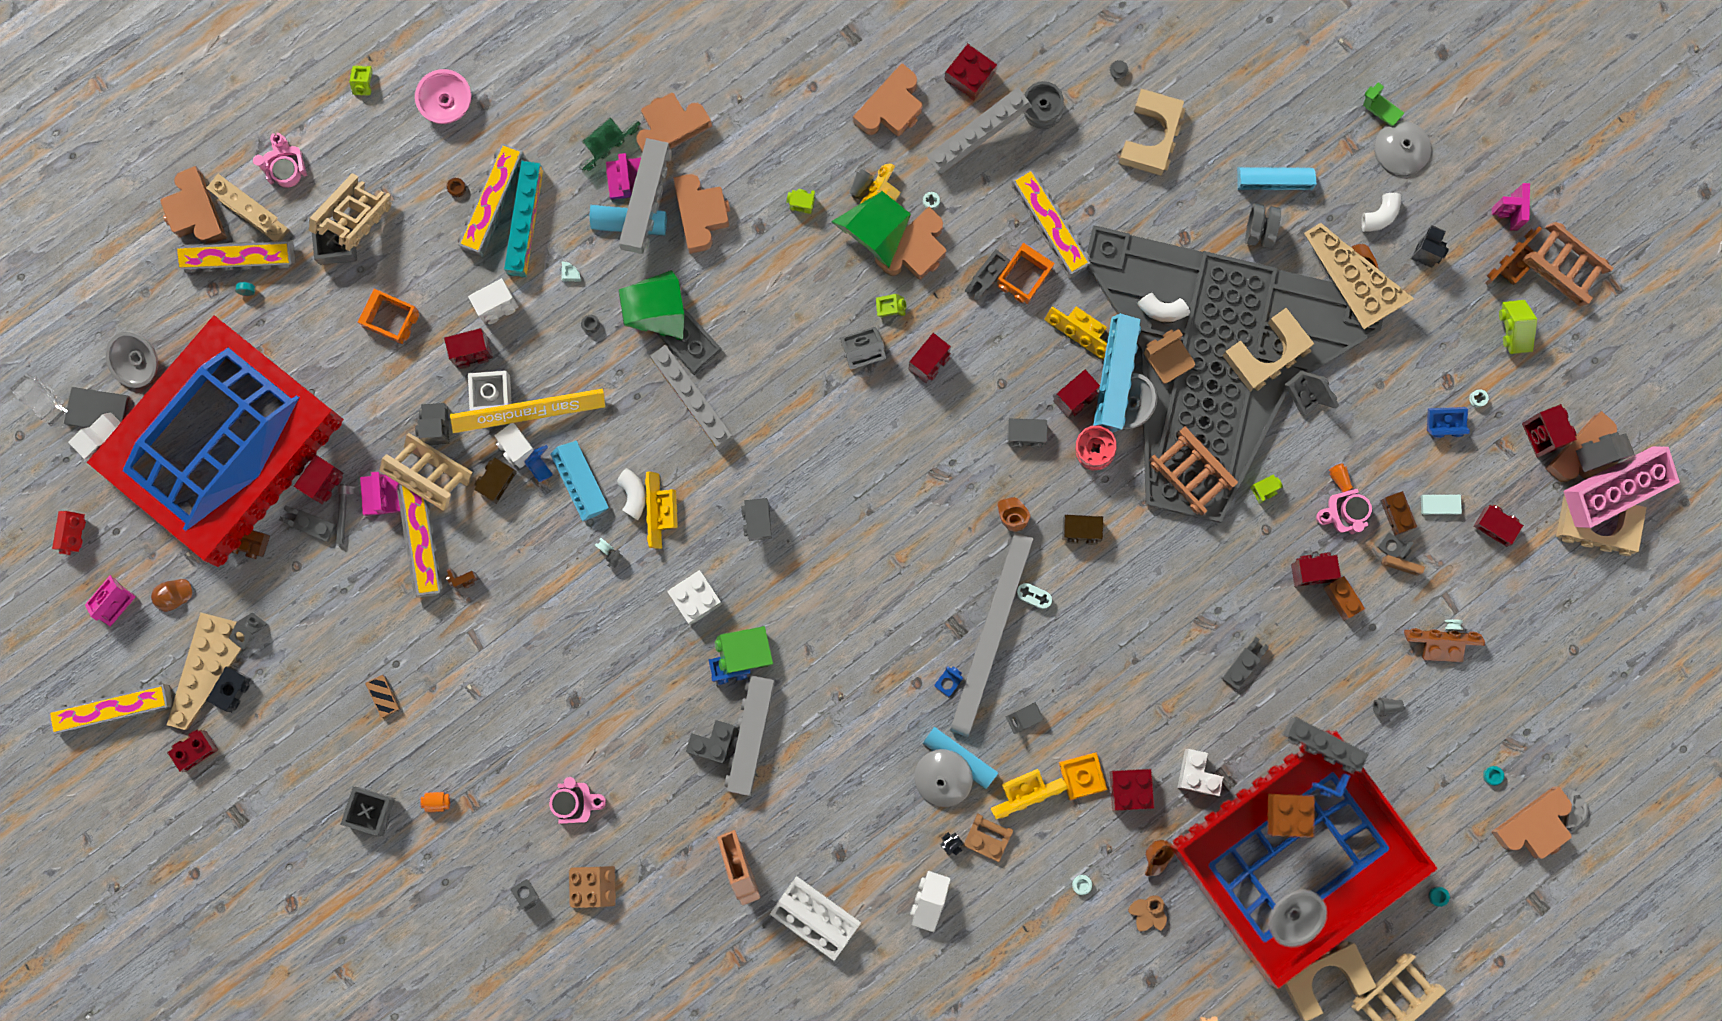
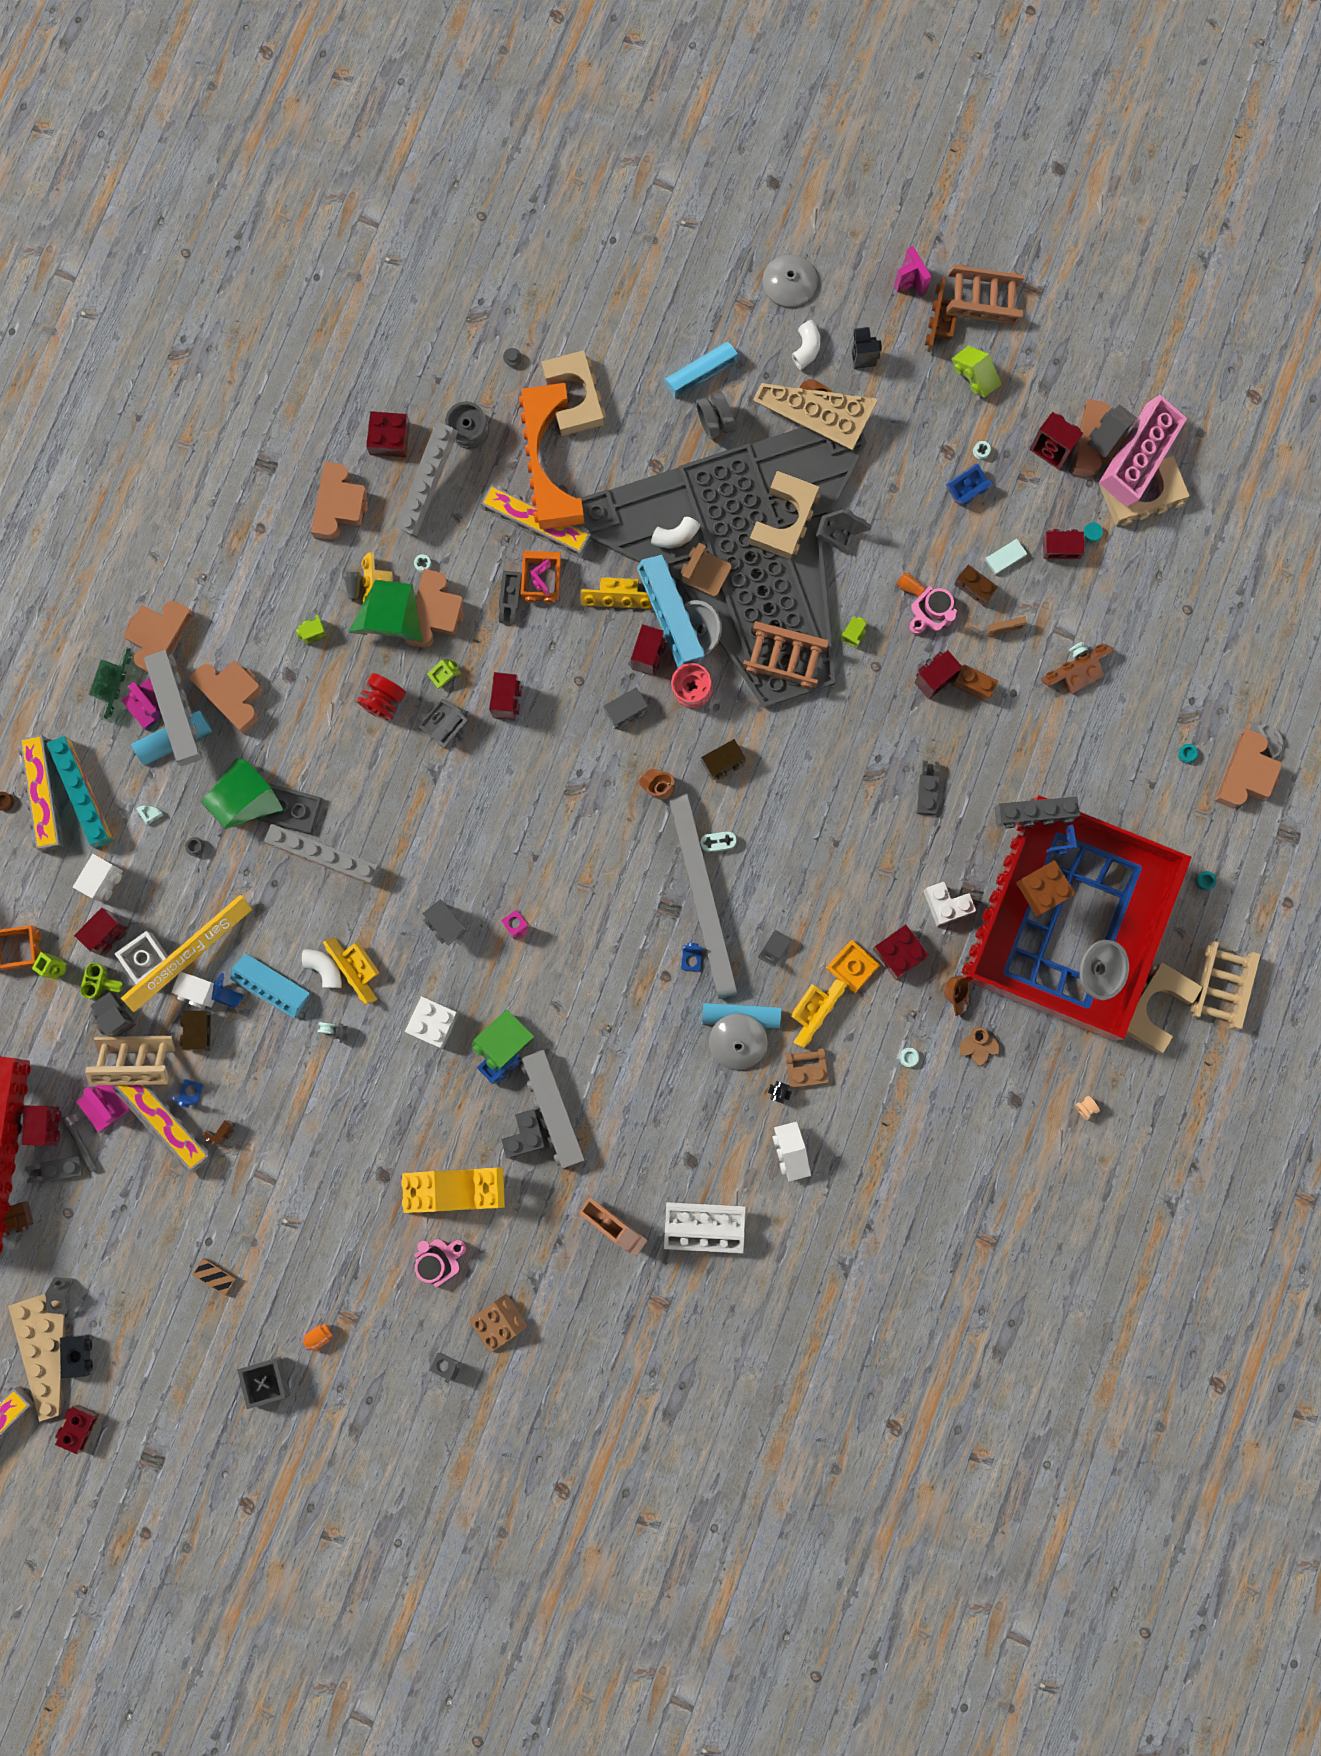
camera: 30 degrees left, 0 degrees up
(411, 353) = (54, 967): none -> lime brick
(441, 390) = (100, 982): none -> lime beam
(450, 533) = (185, 1100): none -> blue bracket
(624, 751) = (453, 1190): none -> yellow bracket
(817, 567) = (517, 932): none -> dark pink bracket
(825, 293) = (381, 695): none -> red wheel
(1018, 278) = (538, 583): none -> dark pink bracket
(1073, 218) = (553, 505): none -> orange arch
(1380, 106) = (750, 257): bright green bracket -> none
(1386, 706) = (1065, 751): dark grey cone -> none
(1402, 549) = (998, 614): dark grey bracket -> none
(1532, 530) = (1093, 532): none -> teal tile

